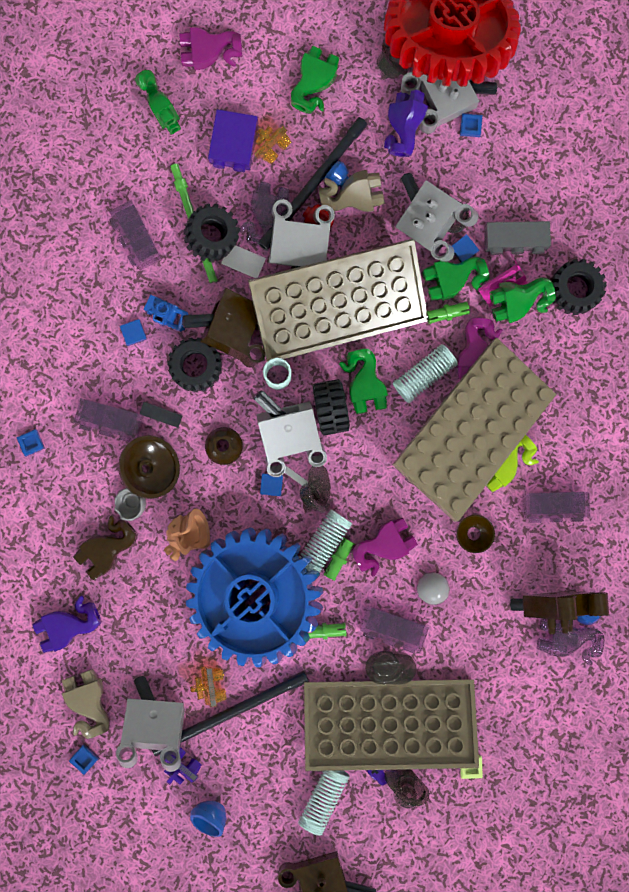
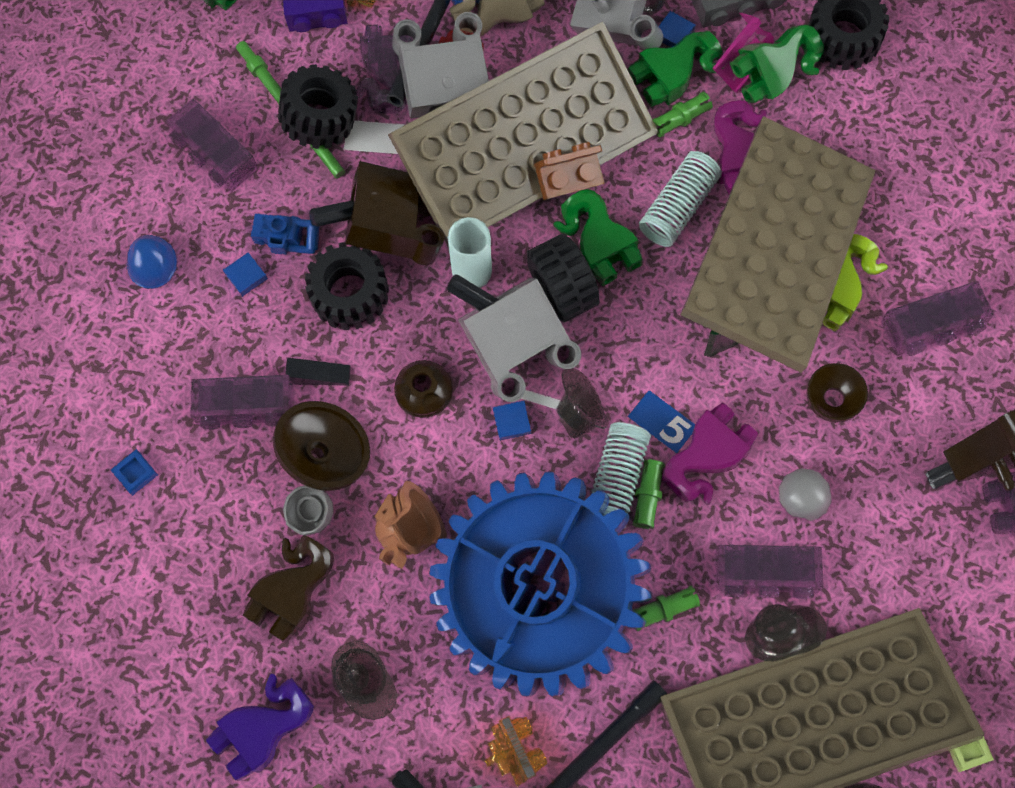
camera: 10 degrees left, 15 degrees down
(75, 305) = (151, 261): none -> blue hat
(133, 620) = (363, 680): none -> clear smoke piece
(359, 334) = (569, 172): none -> bracket
(364, 514) = (662, 421): none -> blue sticker

